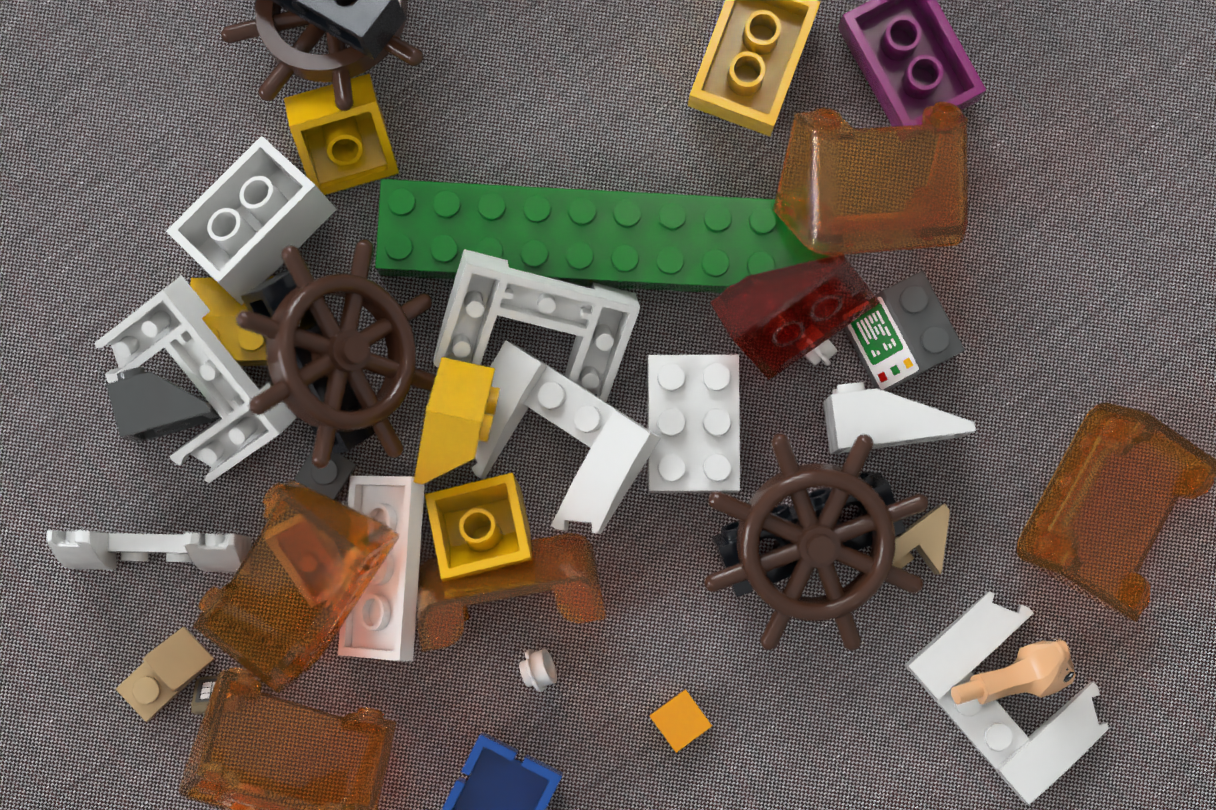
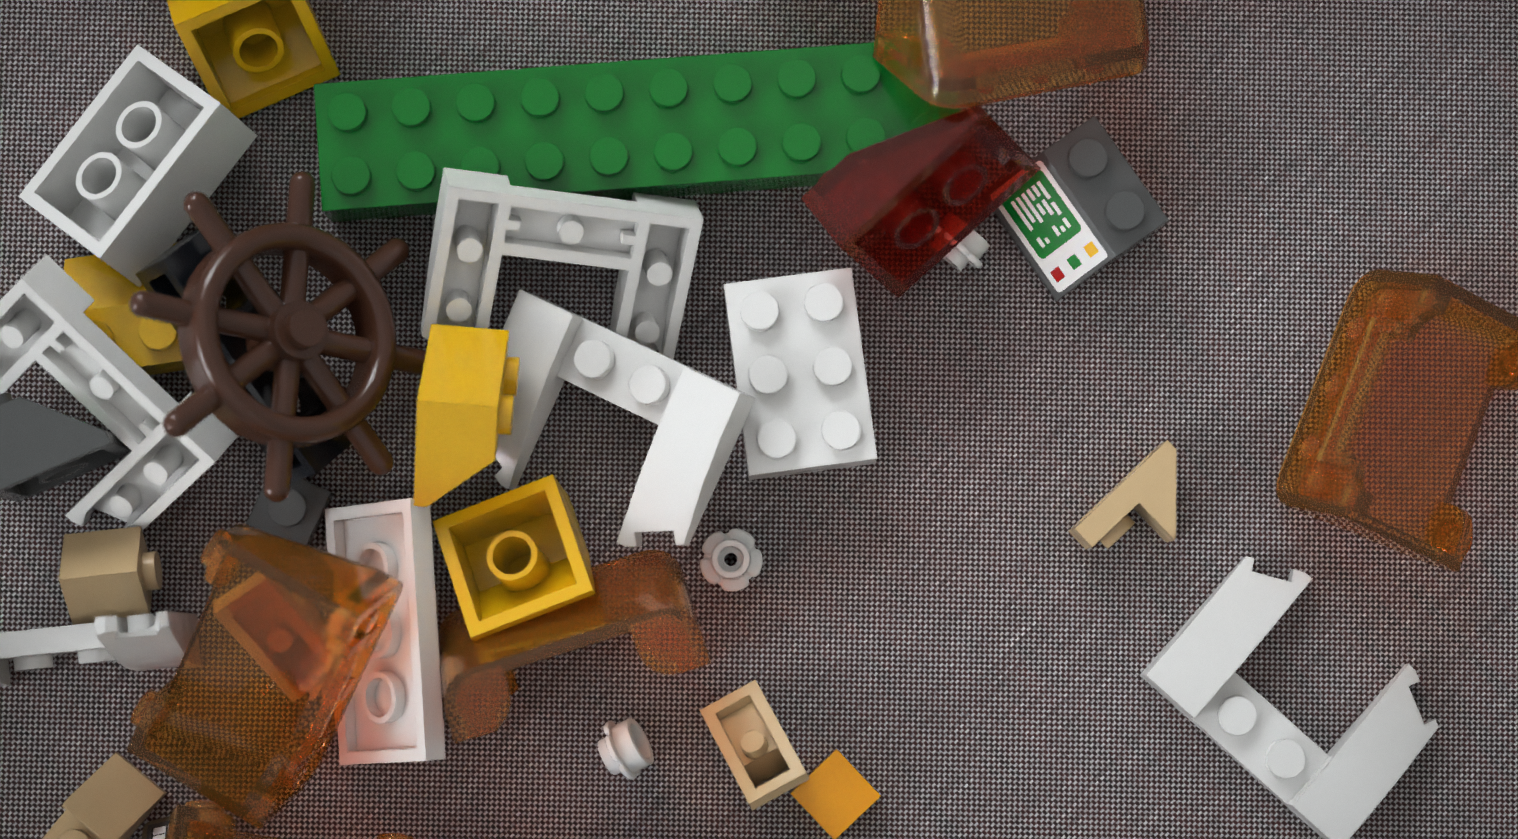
camera: 10 degrees left, 0 degrees up
(194, 502) = (108, 574): none -> tan brick
(617, 553) = (748, 559): none -> white plate
(628, 679) = (754, 745): none -> tan slope
(813, 537) = (988, 512): reddish brown brick -> none
(886, 419) = (1063, 333): white slope -> none
(1038, 670) = (1327, 658): light nougat animal -> none

